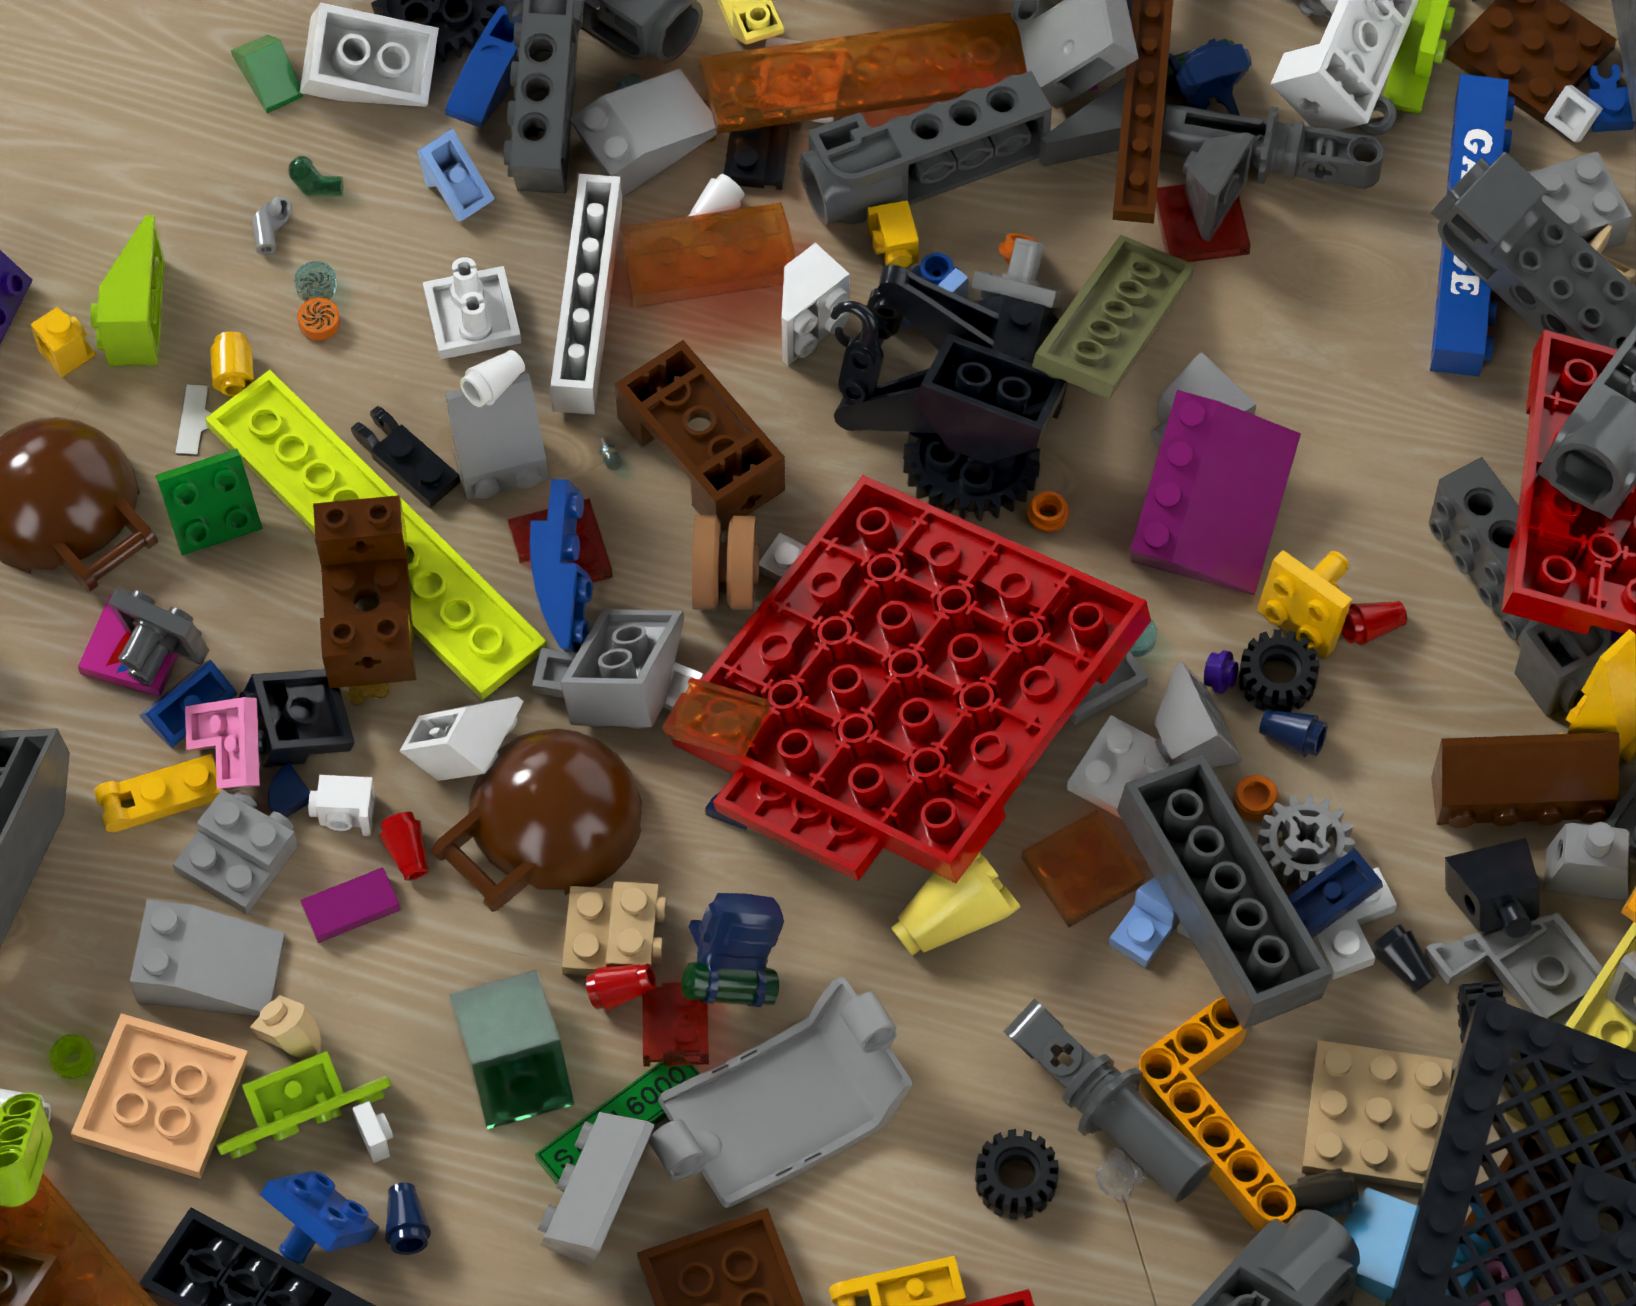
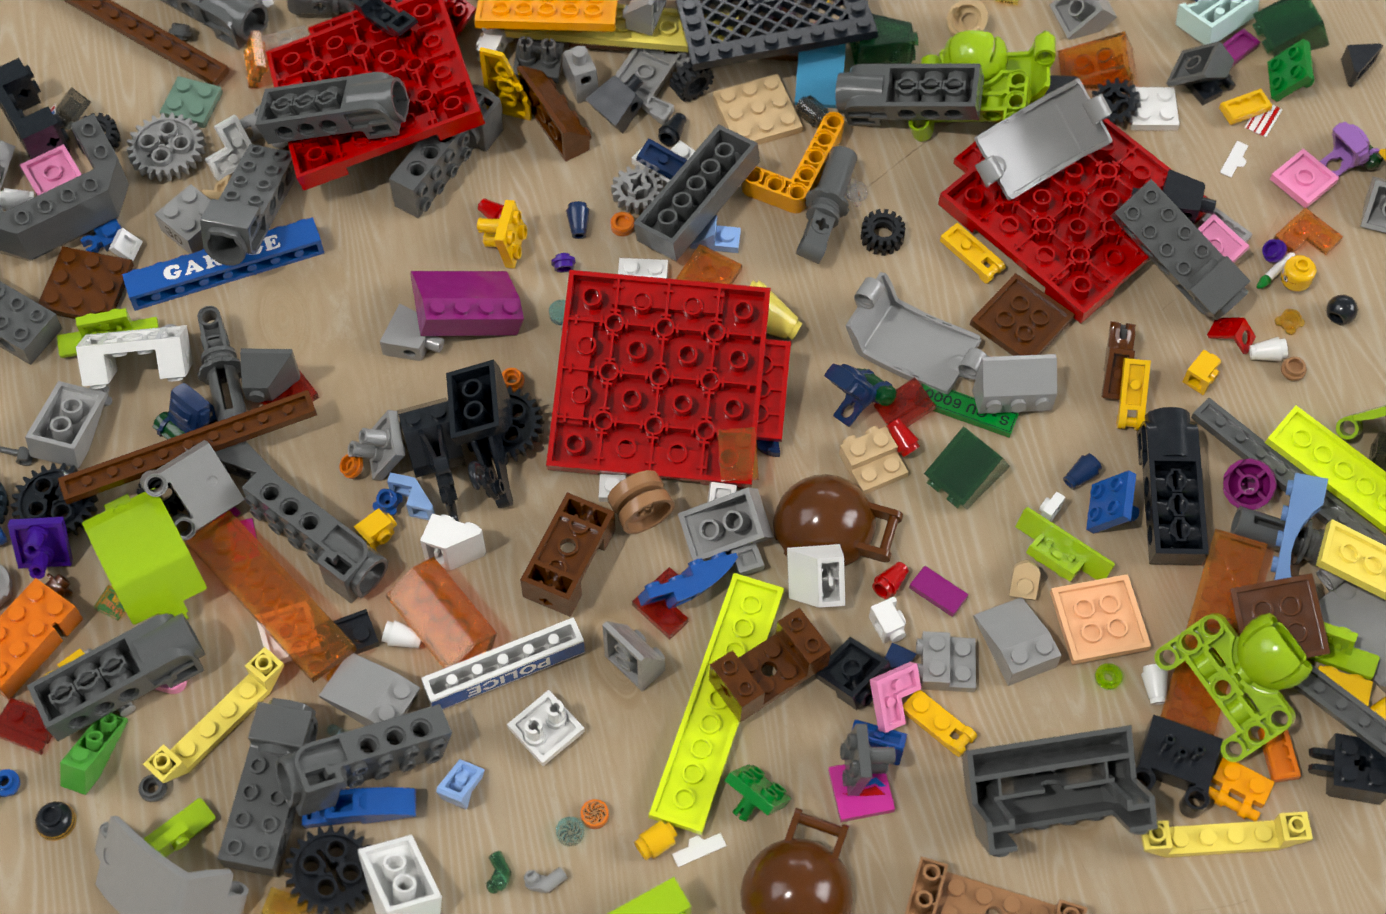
camera: 120 degrees left, 0 degrees up
(407, 458) = (659, 711): black hinge -> none
(491, 378) = (622, 633): white cone -> none
(610, 456) = (596, 608): clear light blue piece -> none
(1113, 317) = (385, 381): olive plate -> none
(1192, 723) = (608, 252): light grey slope -> none
(1284, 650) = (543, 228): black tyre -> none

